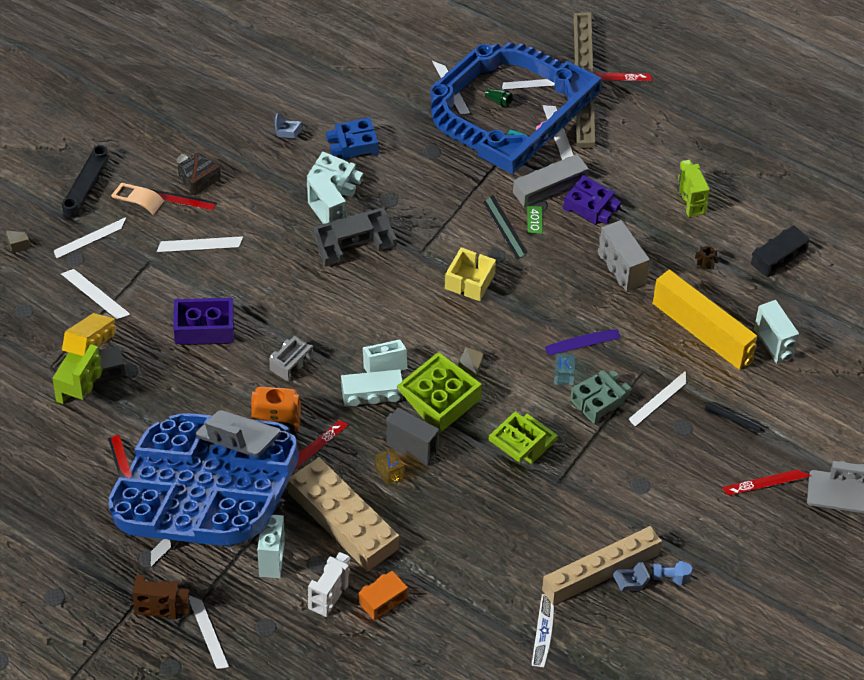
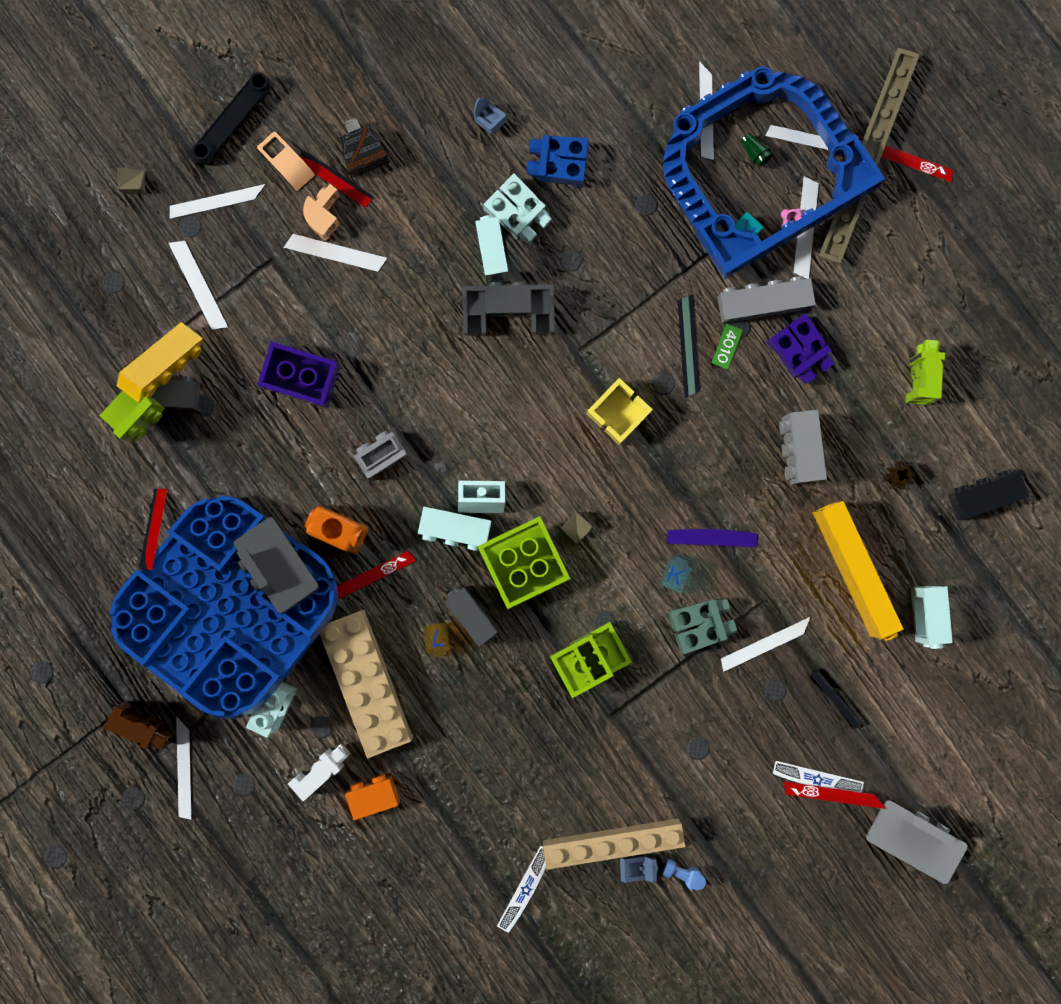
camera: 25 degrees right, 35 degrees up
(179, 220) = (317, 213): none -> light nougat brick
(738, 477) = (815, 778): none -> white sticker

